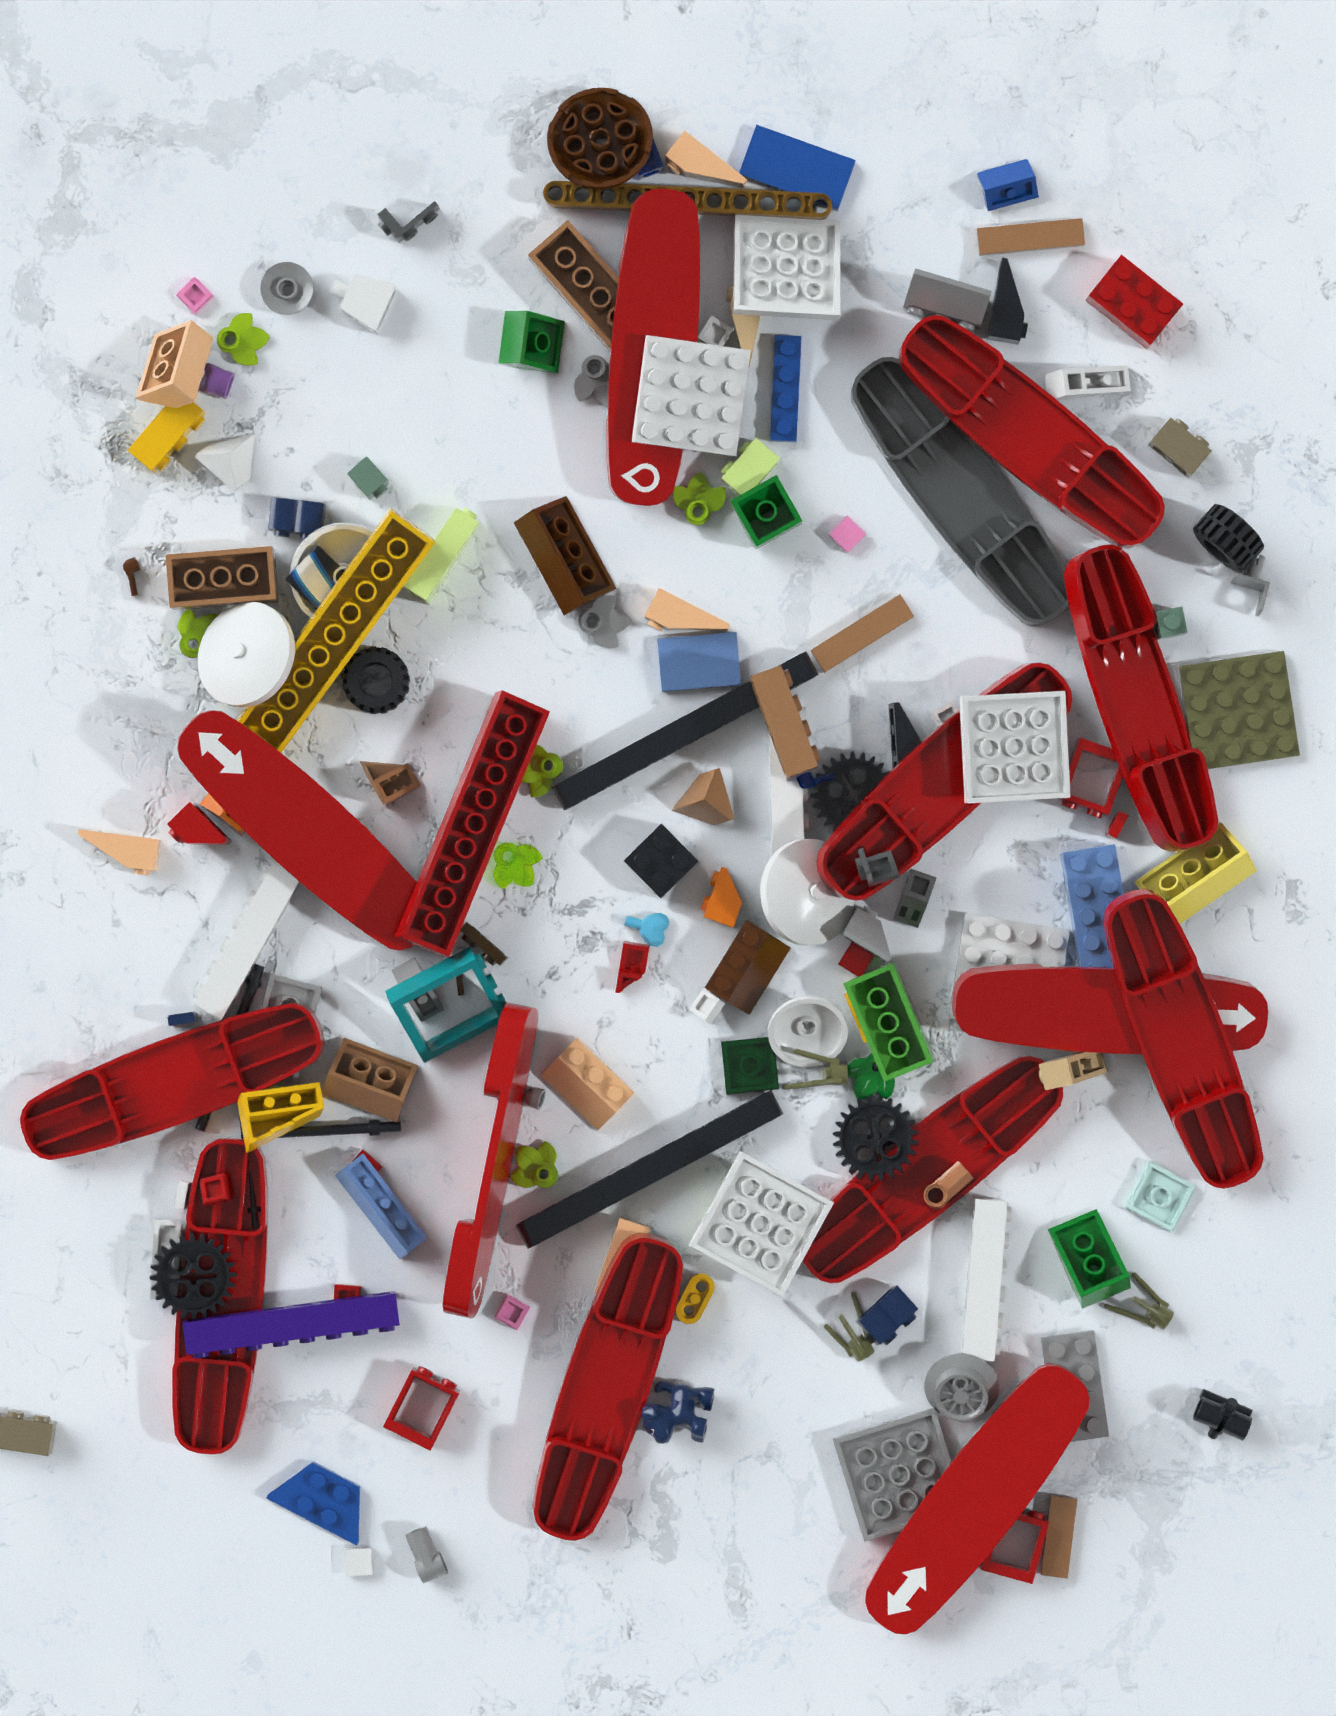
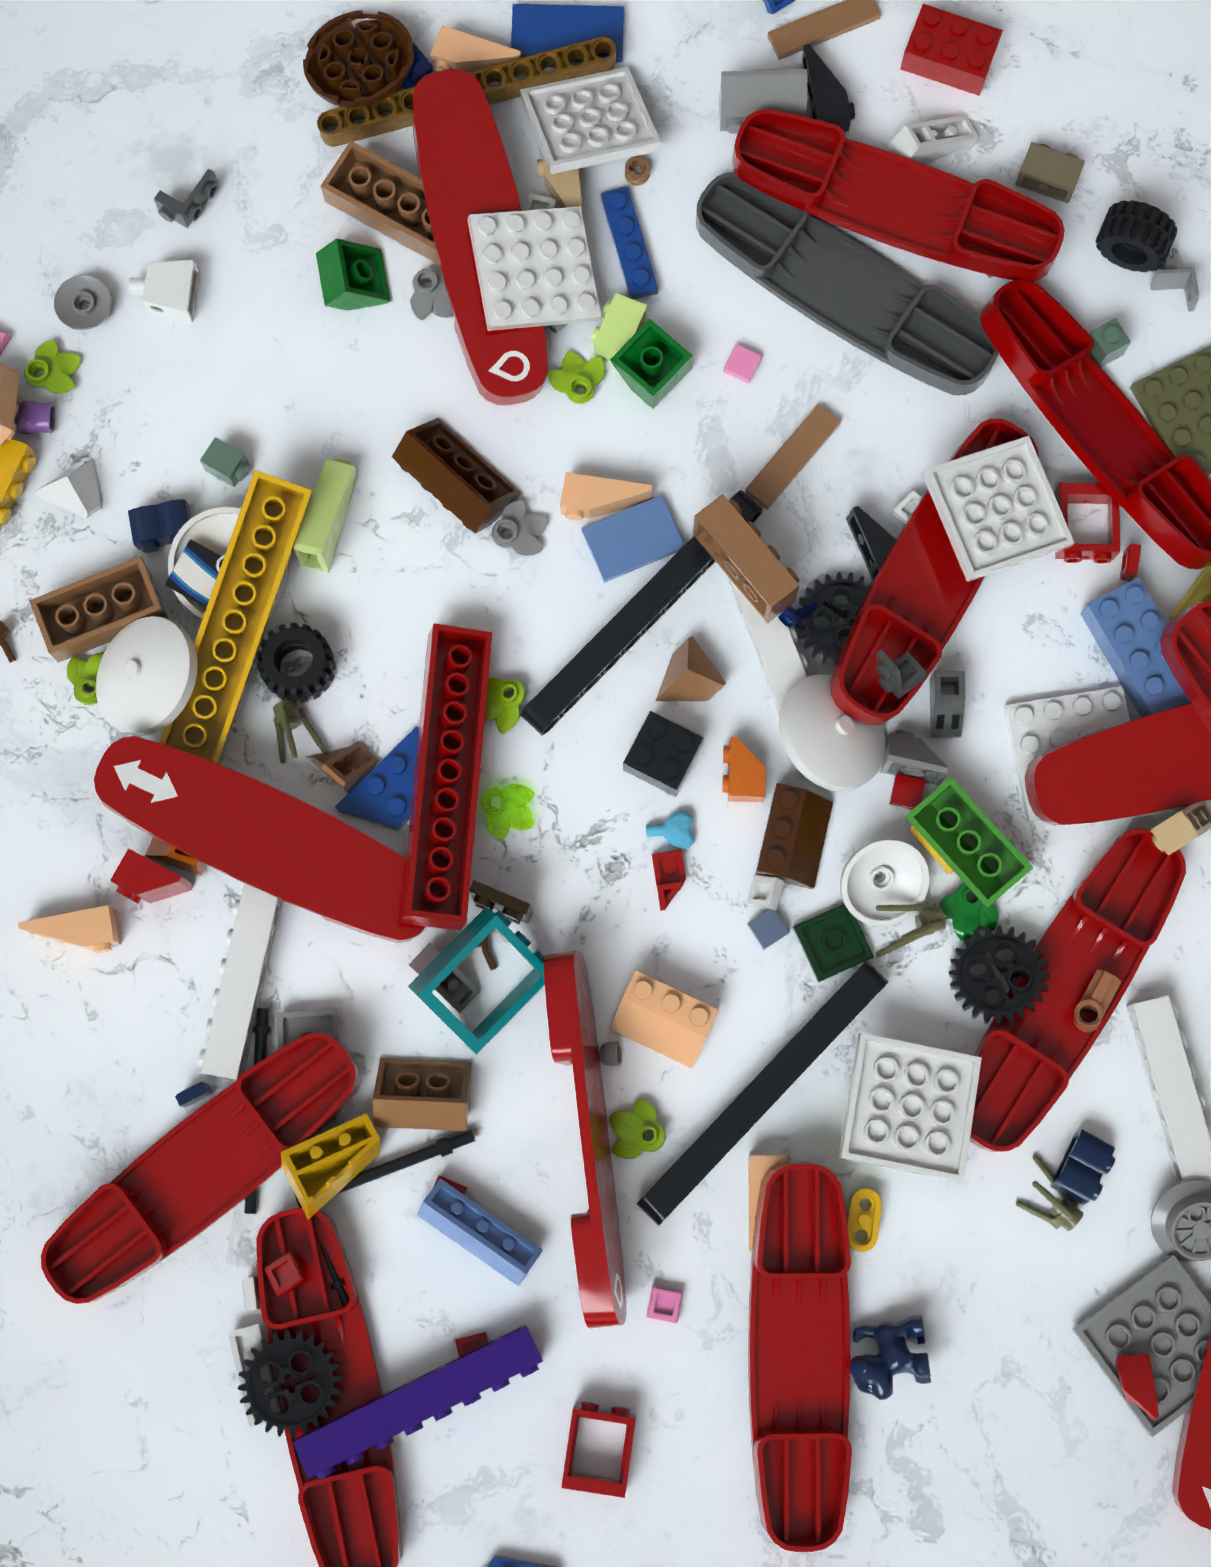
camera: 10 degrees left, 10 degrees down
(353, 724) = (287, 719): none -> olive plant
(421, 812) = (387, 790): none -> blue wing
(699, 1036) = (768, 928): none -> sand blue tile
(809, 327) = (631, 176): none -> medium nougat bush
(867, 1496) = (1138, 1382): none -> red slope

